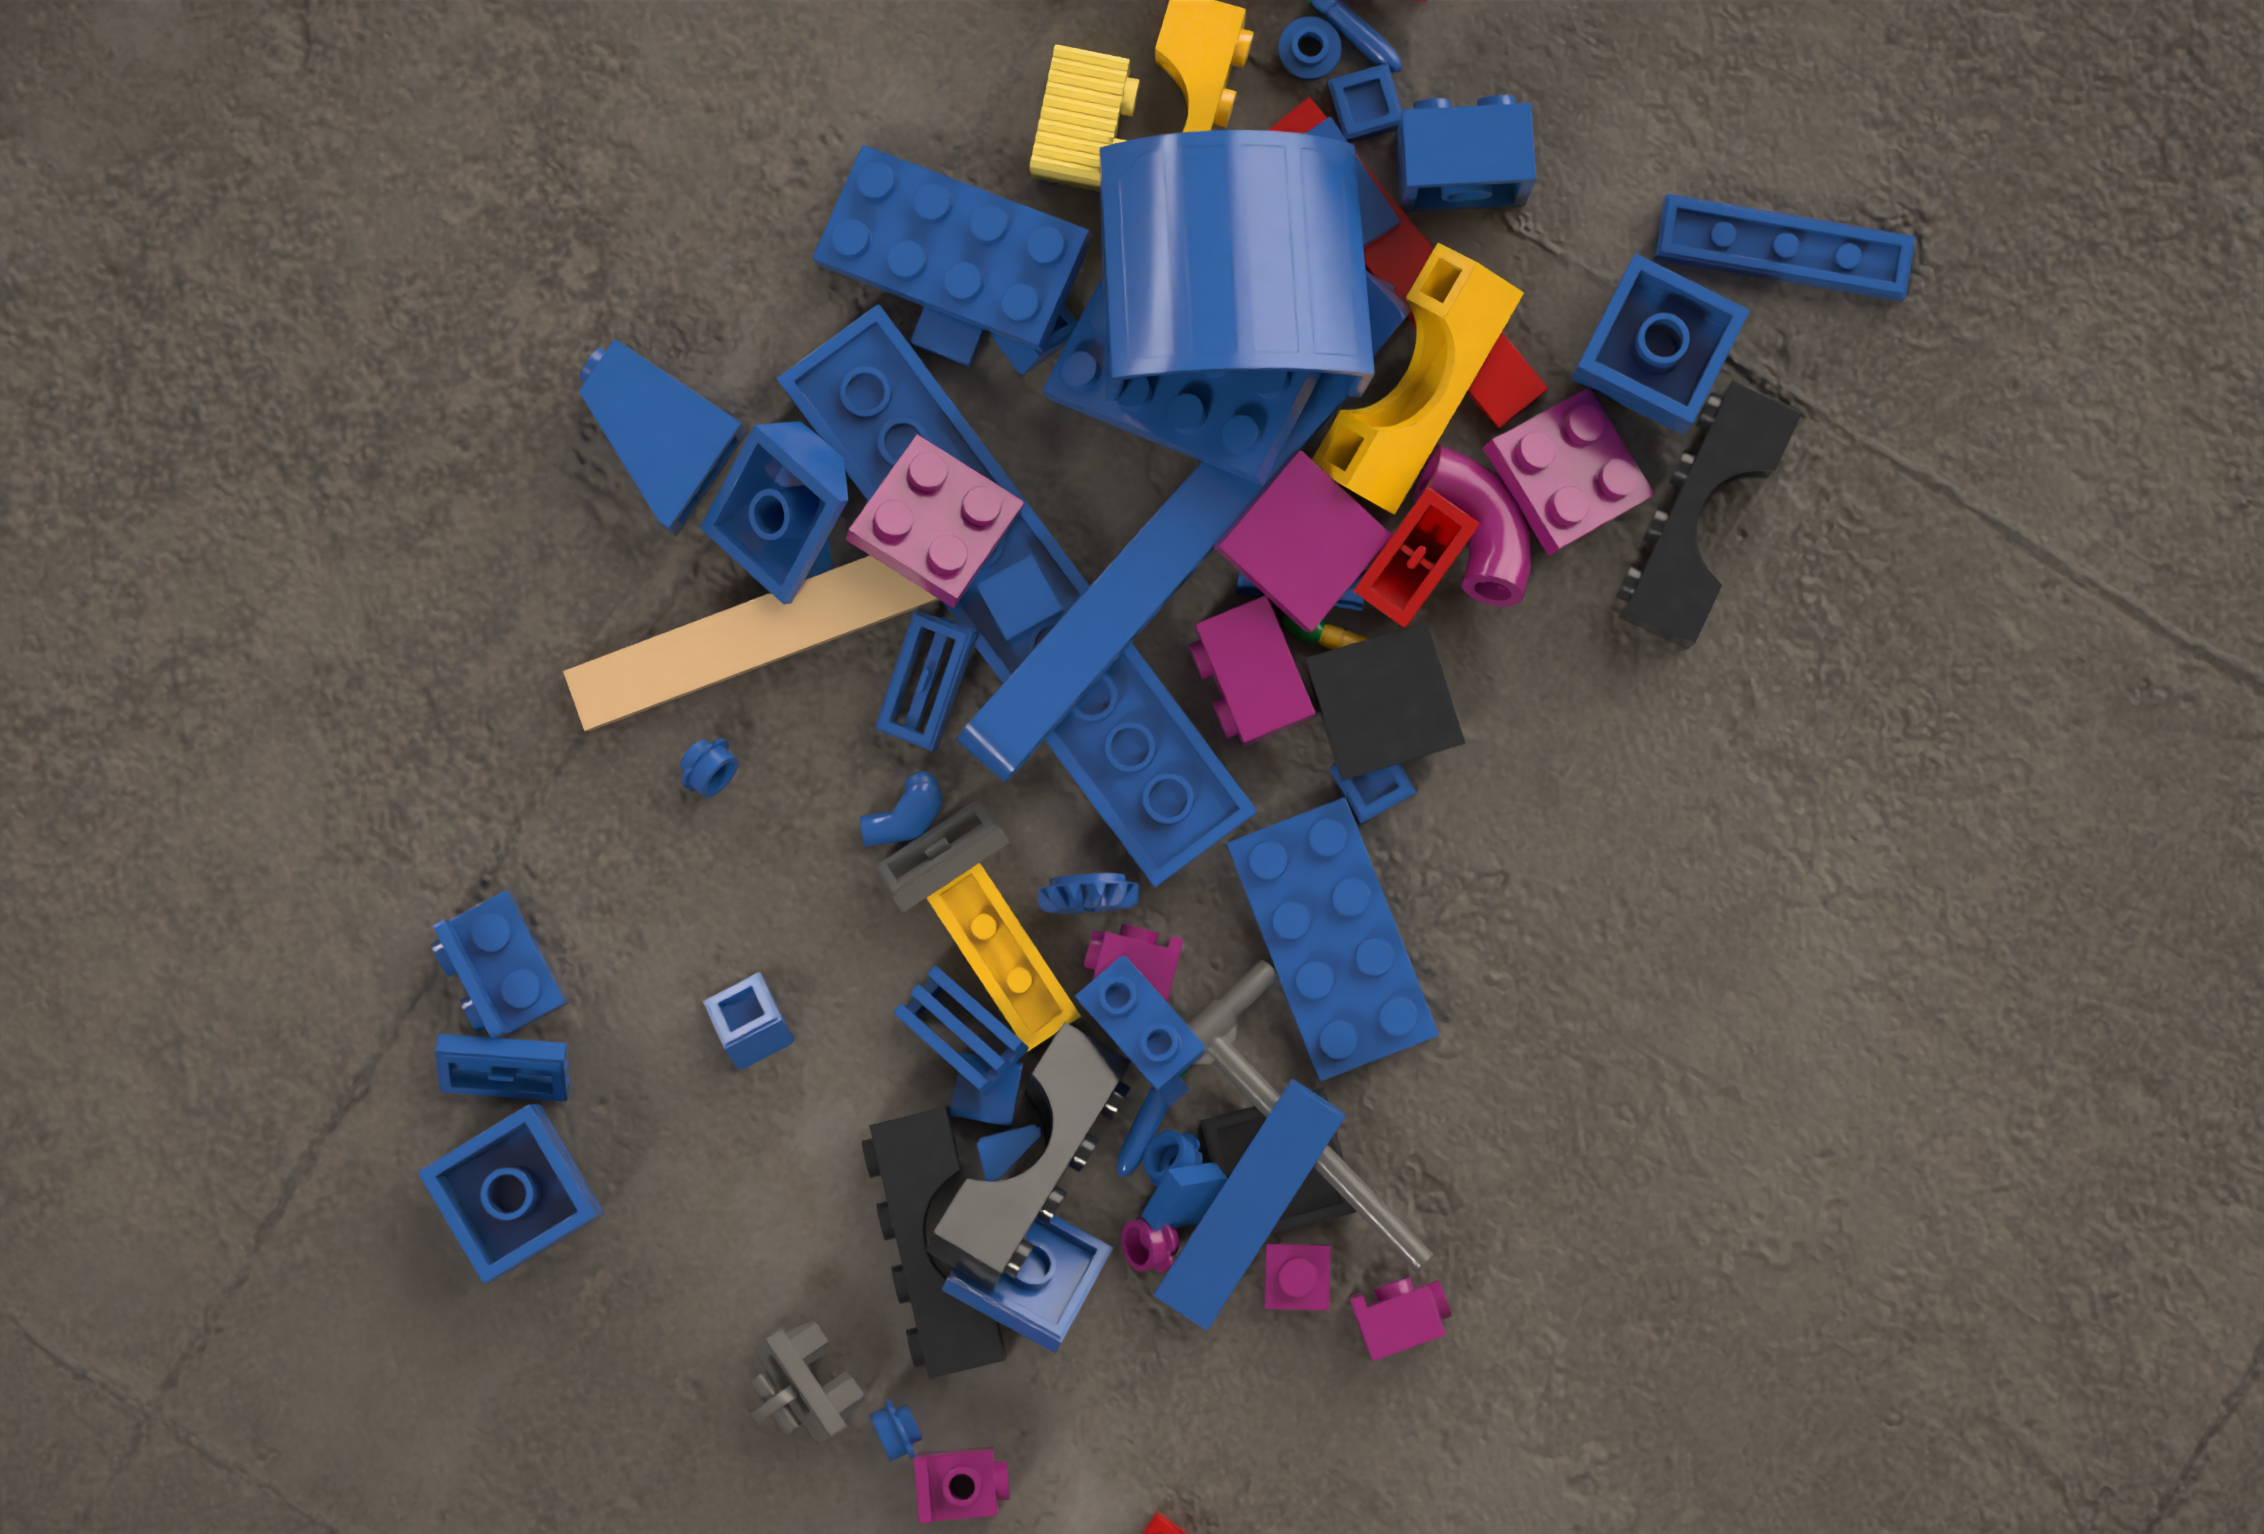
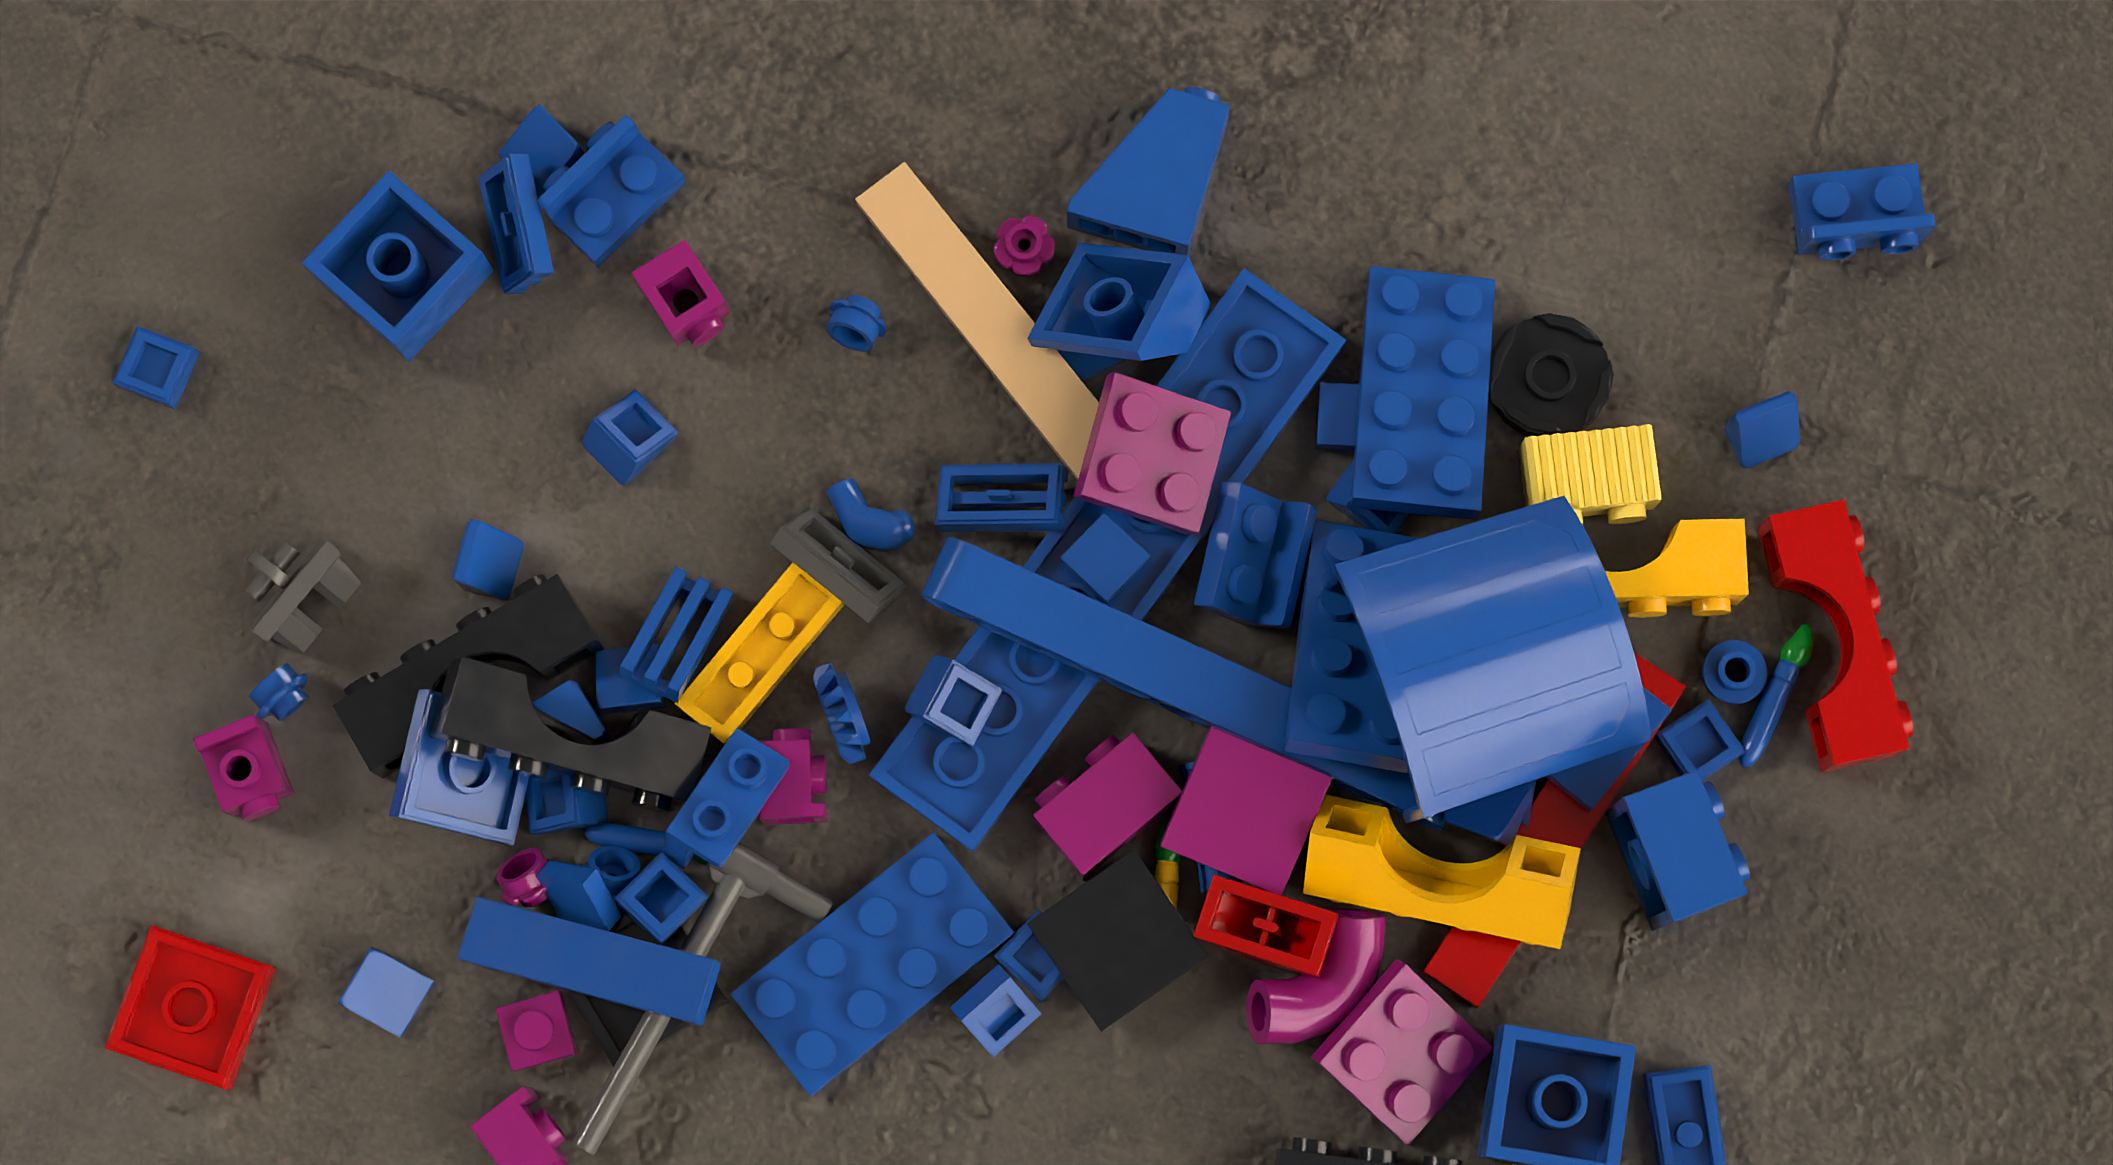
camera: 70 degrees right, 5 degrees down
(432, 1014) = (545, 143): none -> blue slope
(530, 1464) = (156, 367): none -> blue tile
(605, 921) = (673, 277): none -> magenta brick
(700, 584) = (1024, 261): none -> magenta plate
(830, 1191) = (487, 560): none -> blue slope
(972, 124) = (1549, 376): none -> black tile
(1061, 456) = (1255, 557): none -> blue bracket
(1090, 1191) = (560, 808): none -> blue slope
(1108, 785) = (953, 699): none -> blue slope
(1213, 1118) = (660, 898): none -> blue slope
(1216, 1408) = (386, 992): none -> slope
(1413, 836) = (995, 1010): none -> plate

